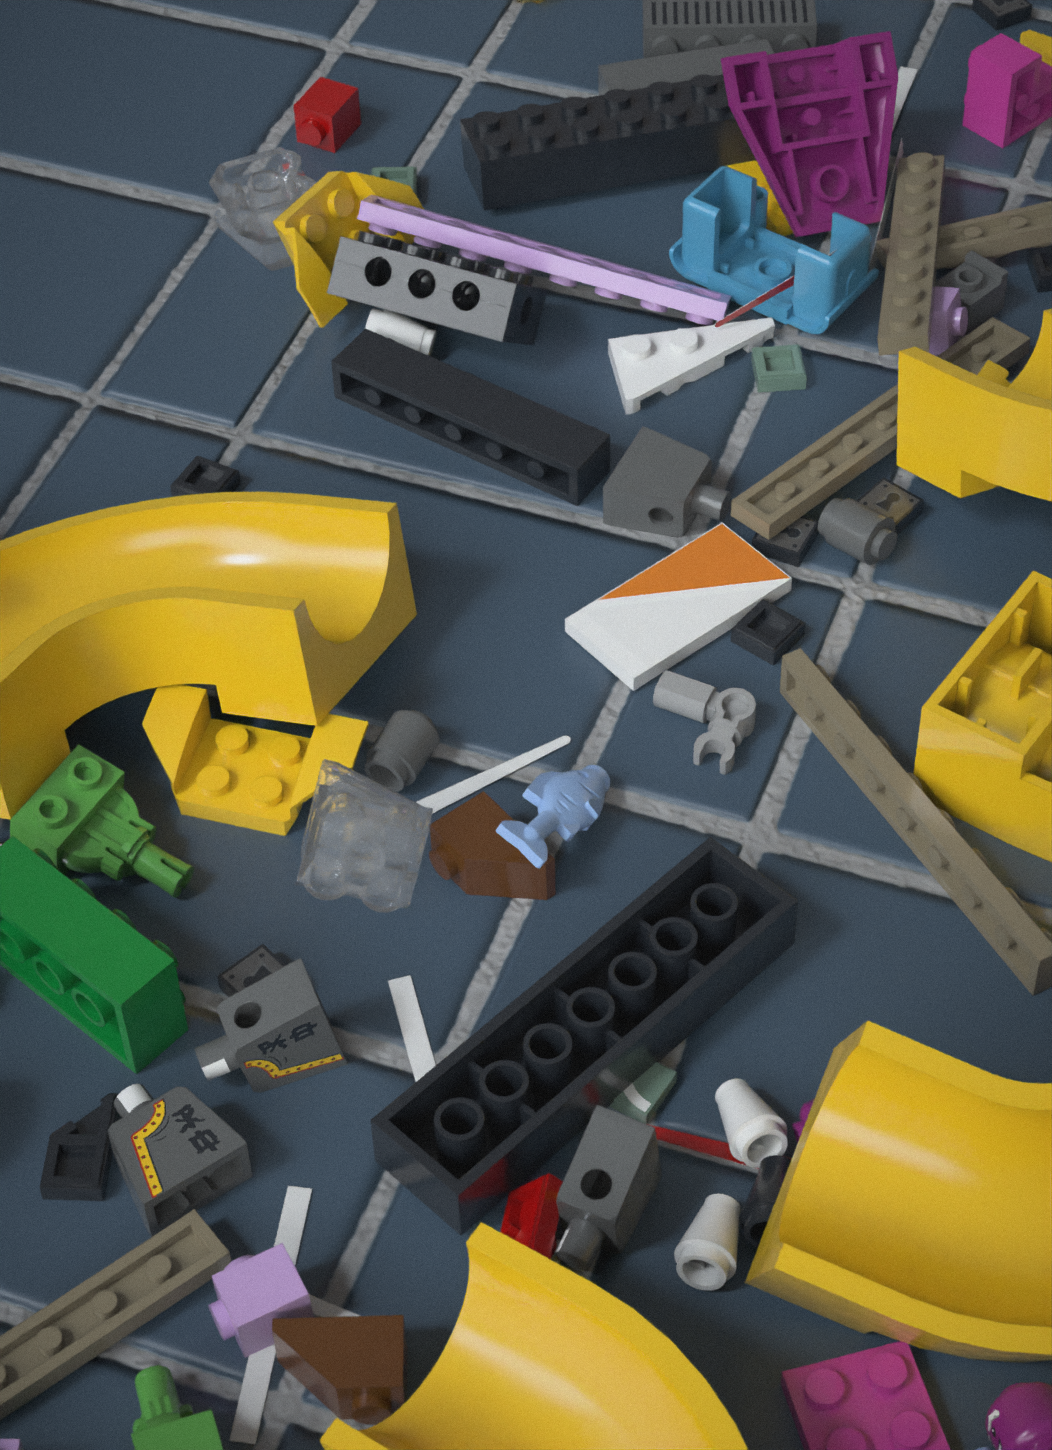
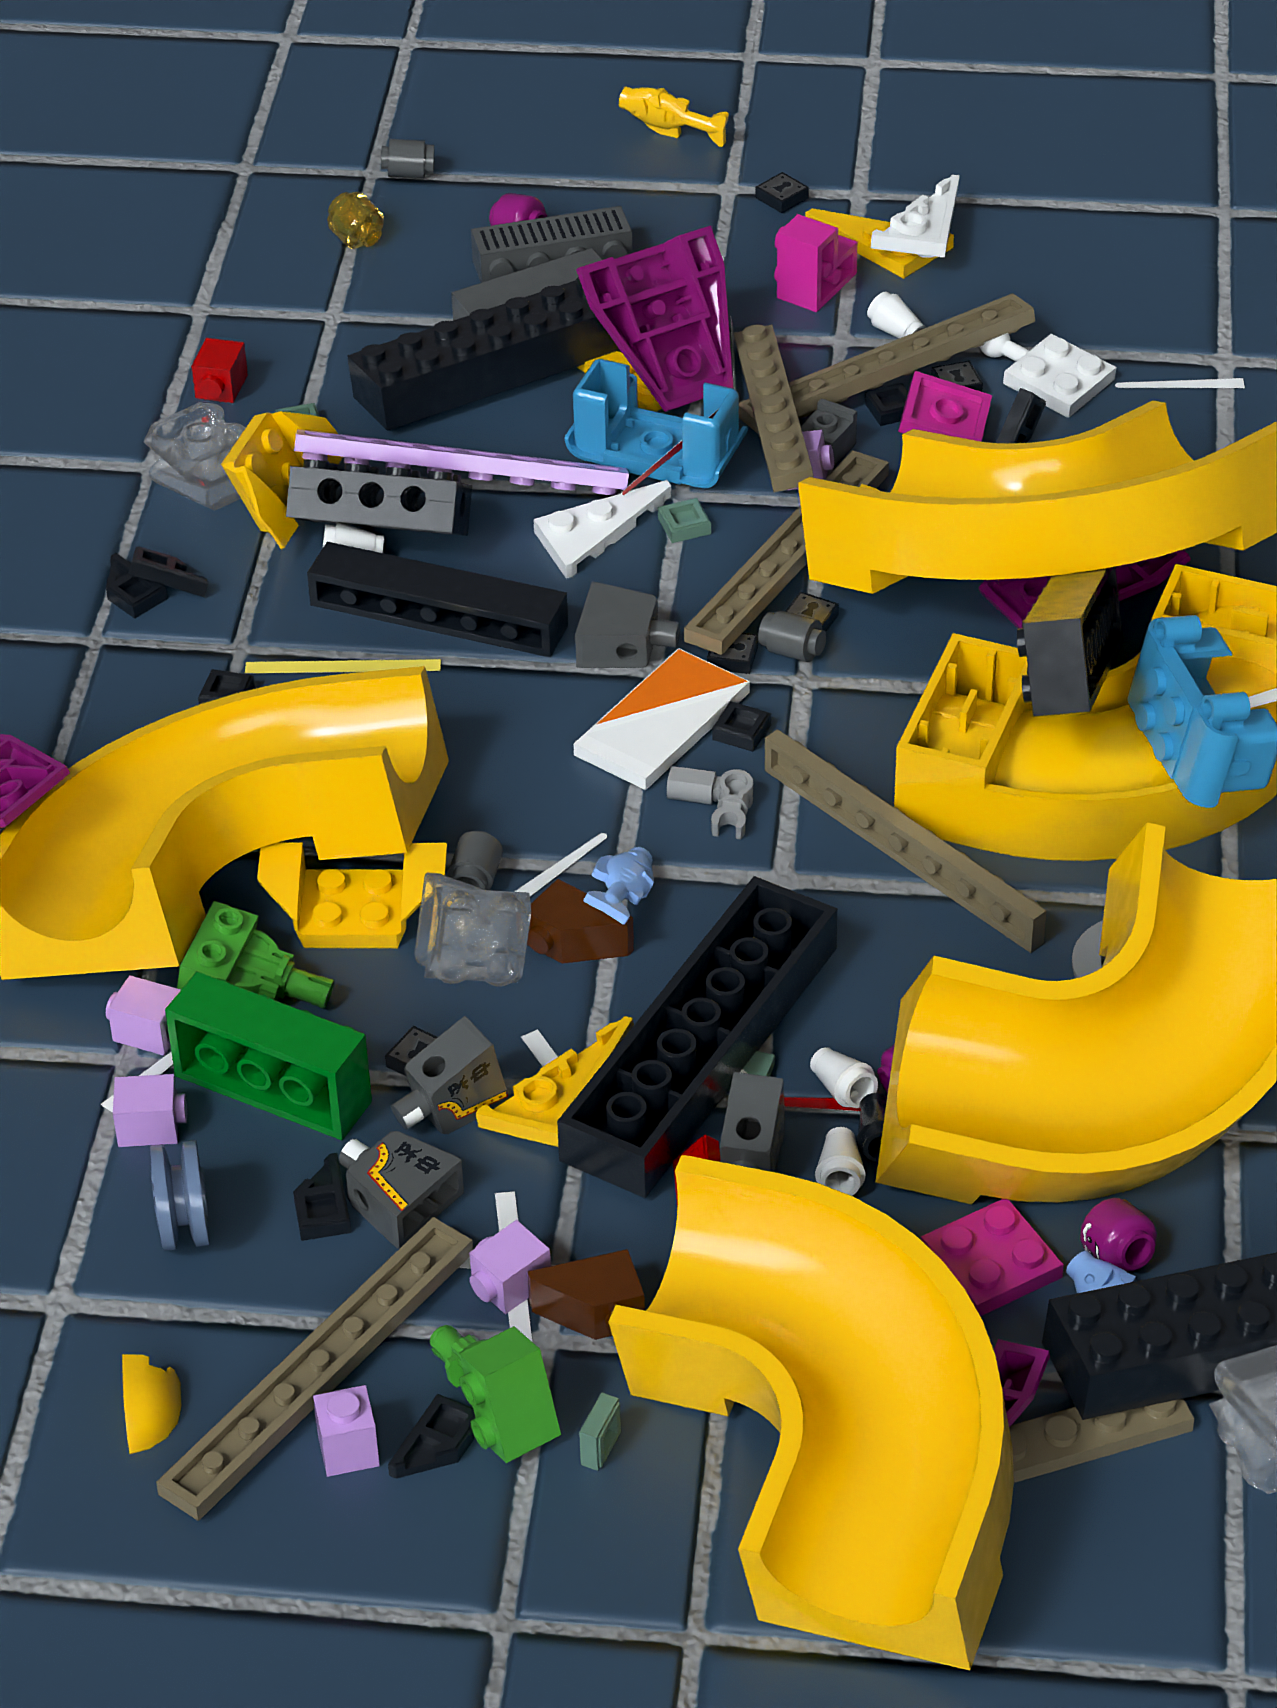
camera: 15 degrees left, 5 degrees down
(150, 345) = (131, 592): none -> black tile
(187, 331) = (166, 571): none -> black tile
(345, 476) = (338, 666): none -> light yellow sticker
(389, 1067) = (547, 1095): none -> yellow wing

